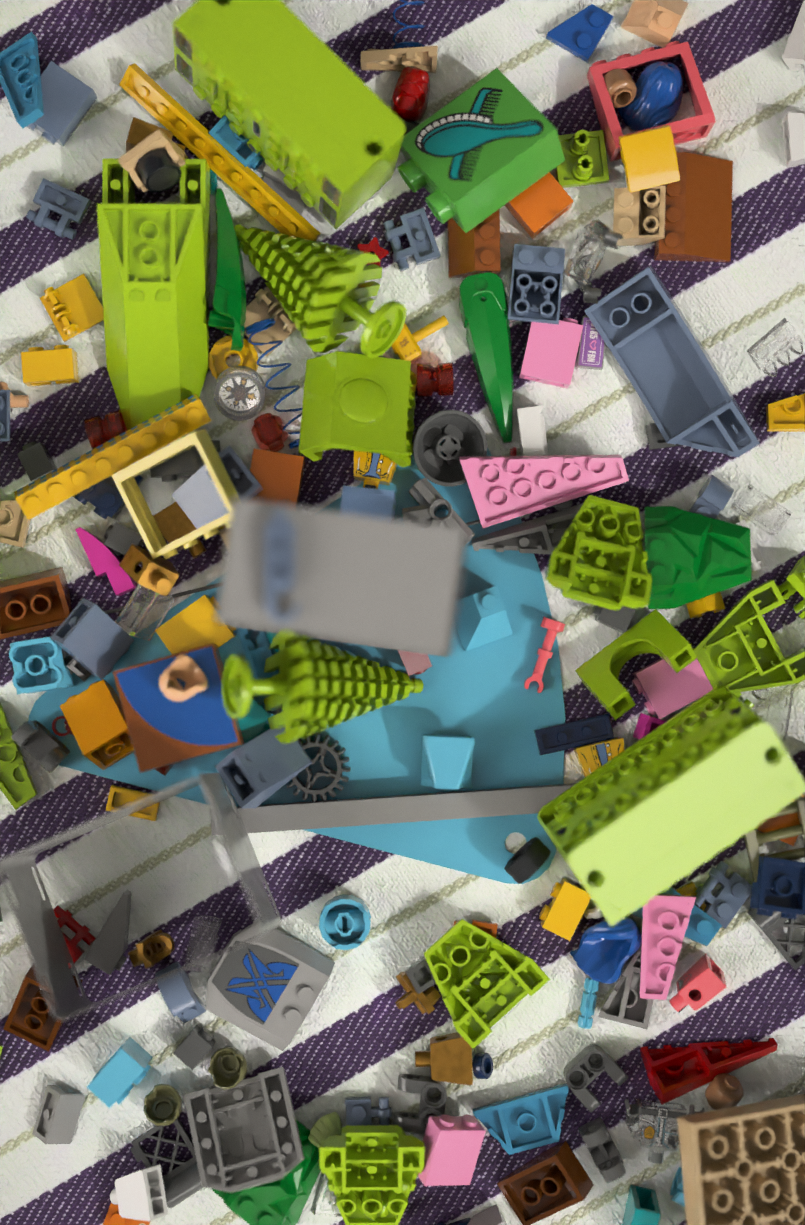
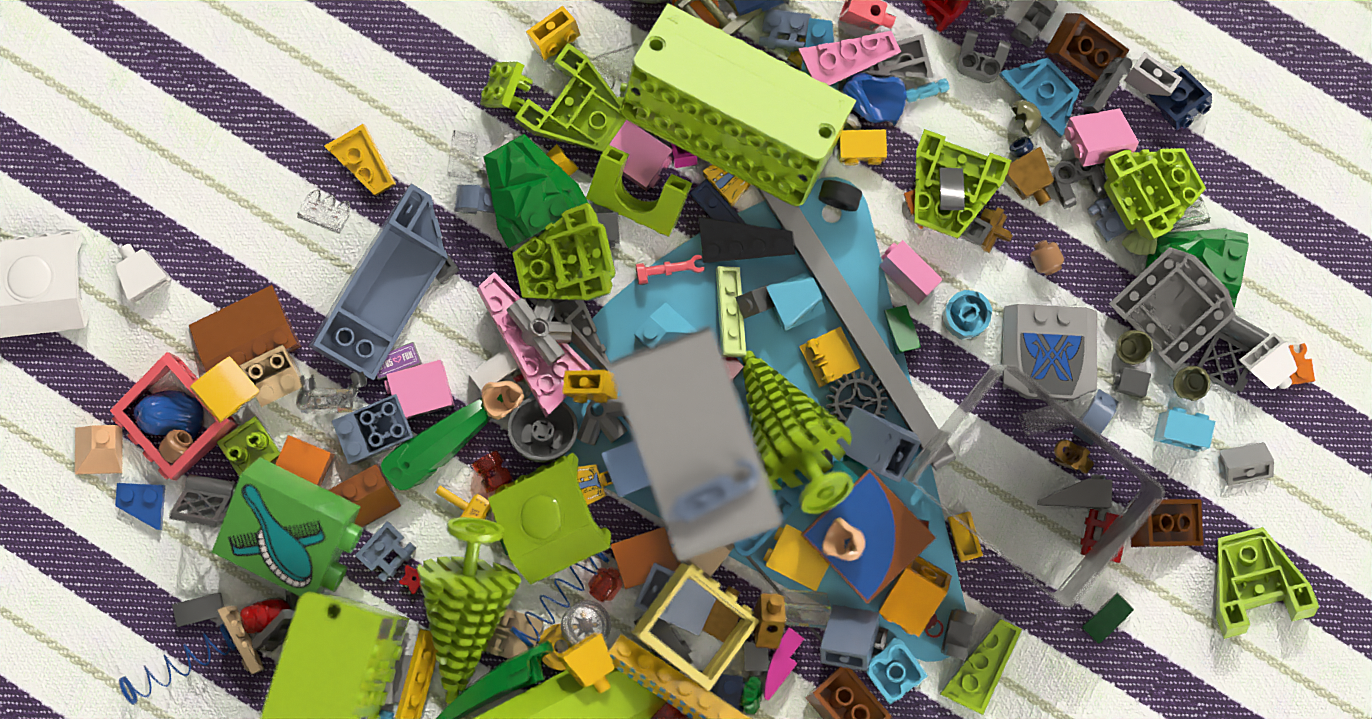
camera: 115 degrees left, 5 degrees down
(89, 517) = (752, 695): none -> green gear
(200, 375) = (589, 662): none -> yellow torso
(360, 1031) = (1047, 257): none -> medium nougat head
(364, 850) = (902, 330): none -> green slope
(375, 765) = (829, 356): none -> yellow hinge
(388, 90) = (275, 633): none -> dark grey hinge
(415, 888) = (909, 271): none -> bright pink brick
(450, 33) = (197, 609): none -> dark grey slope
(466, 720) = (755, 302): none -> dark grey brick
(468, 510) = (589, 385): none -> yellow brick
(469, 691) = (730, 317): none -> yellowish green tile
(475, 973) = (951, 188): none -> dark grey slope
(493, 414) = (511, 394): none -> light nougat hair
(500, 1185) = (1106, 84): none -> dark grey hinge
(511, 1091) = (1029, 114): none -> olive hair
(533, 738) = (739, 241): none -> black wing
(556, 499) = (539, 330): none -> light grey piece
(559, 96) = (206, 491): none -> dark grey piece

